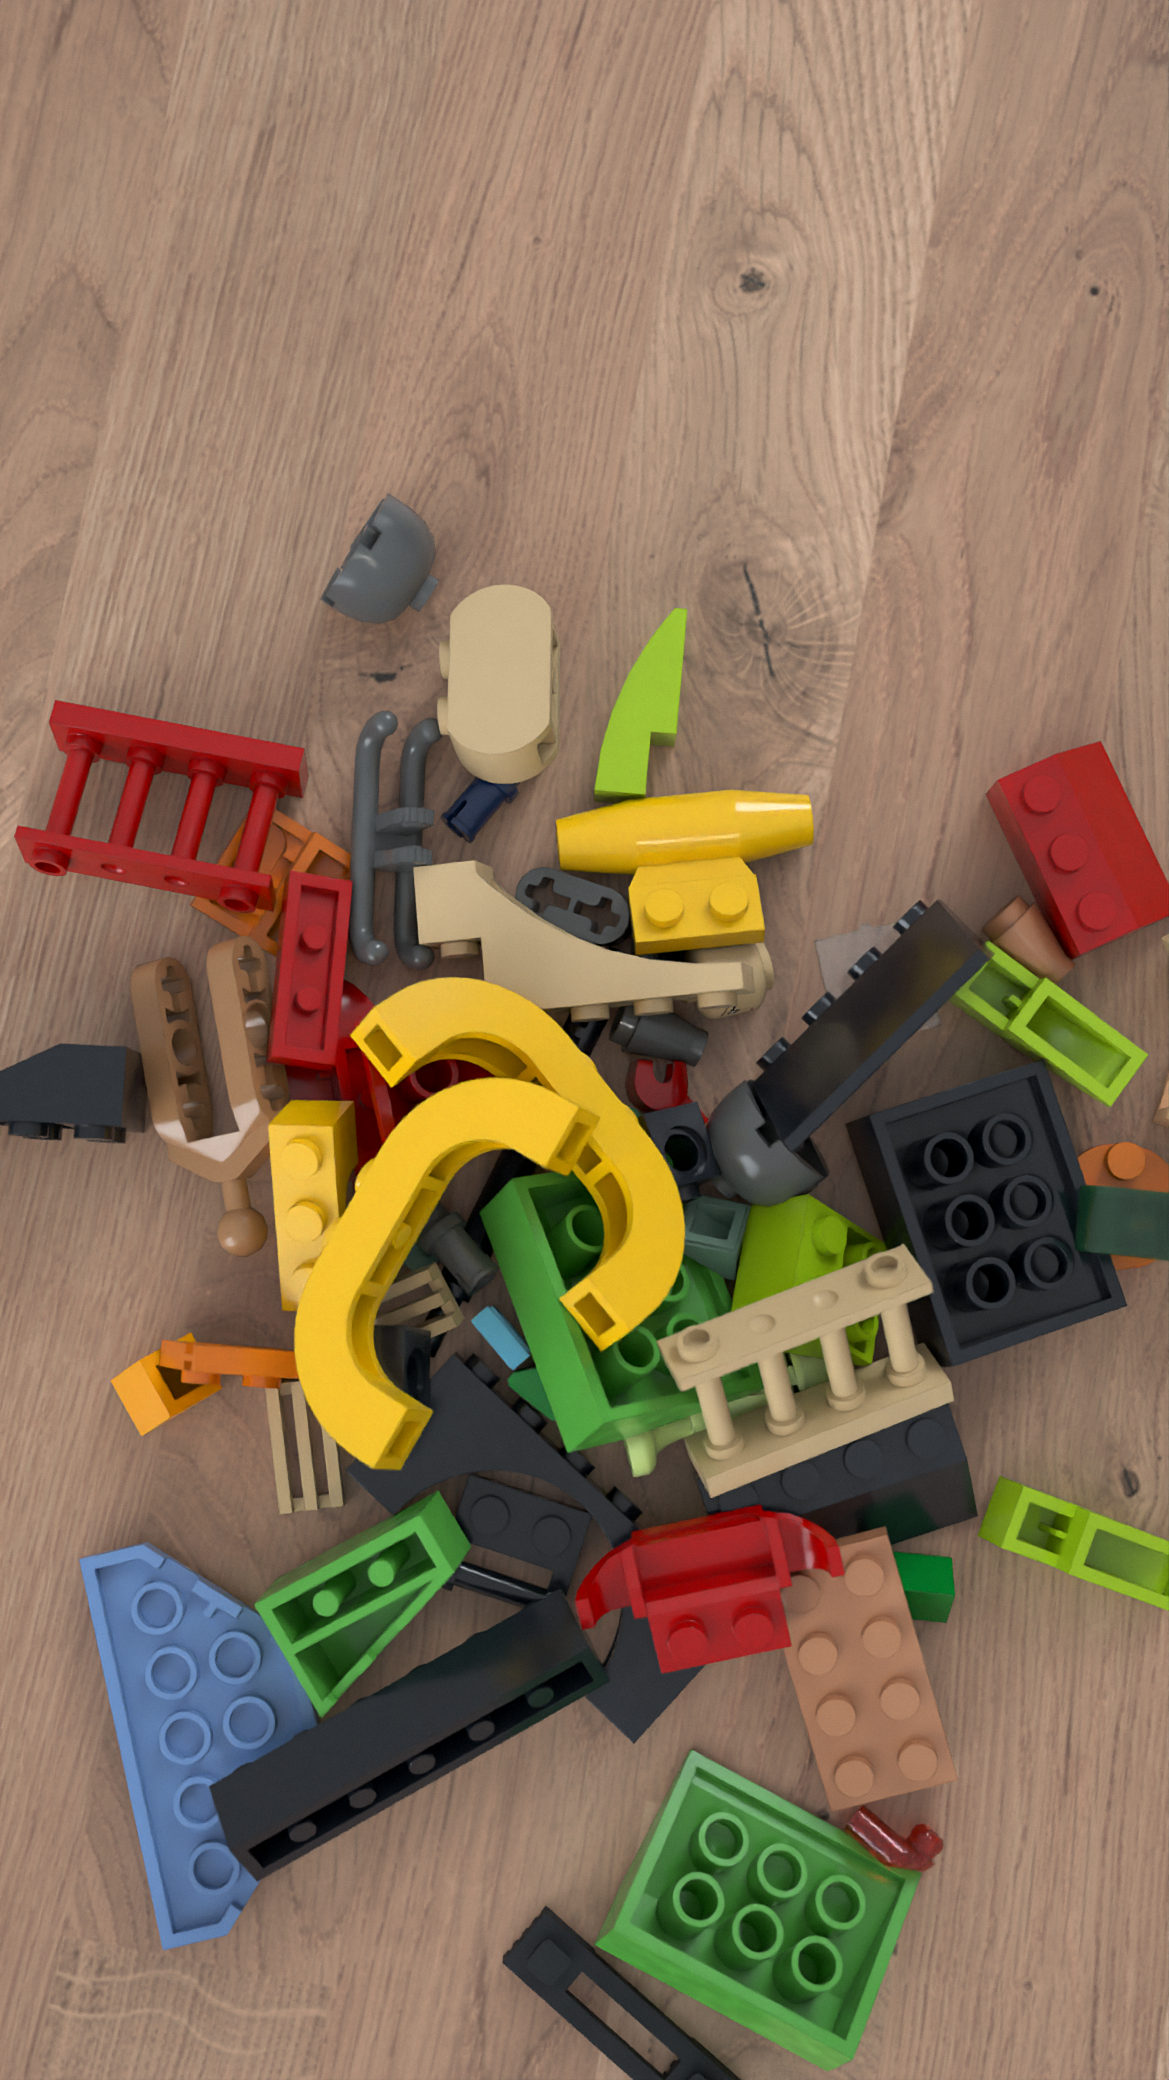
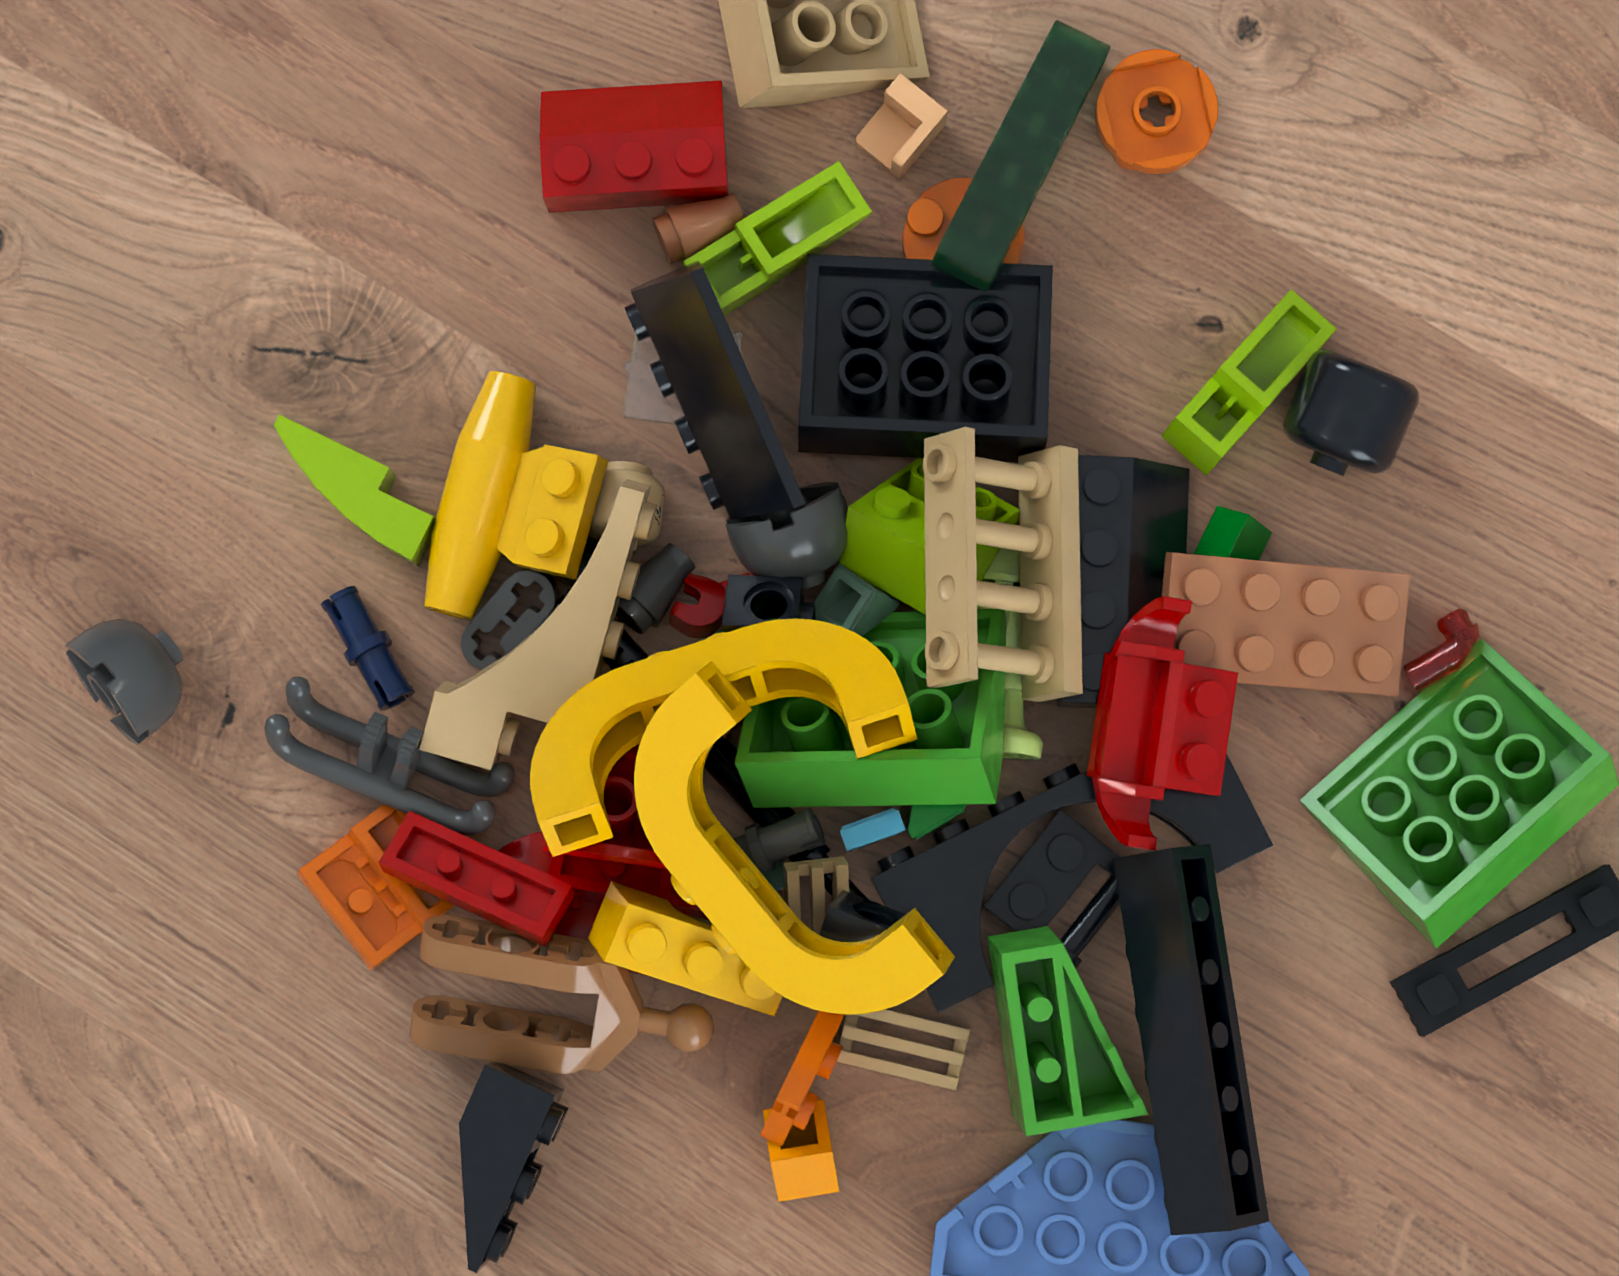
camera: 65 degrees left, 0 degrees up
(148, 749) = (215, 954): red fence -> none
(502, 684) = (281, 607): tan brick -> none
(1095, 1659) = (1350, 413): none -> black head

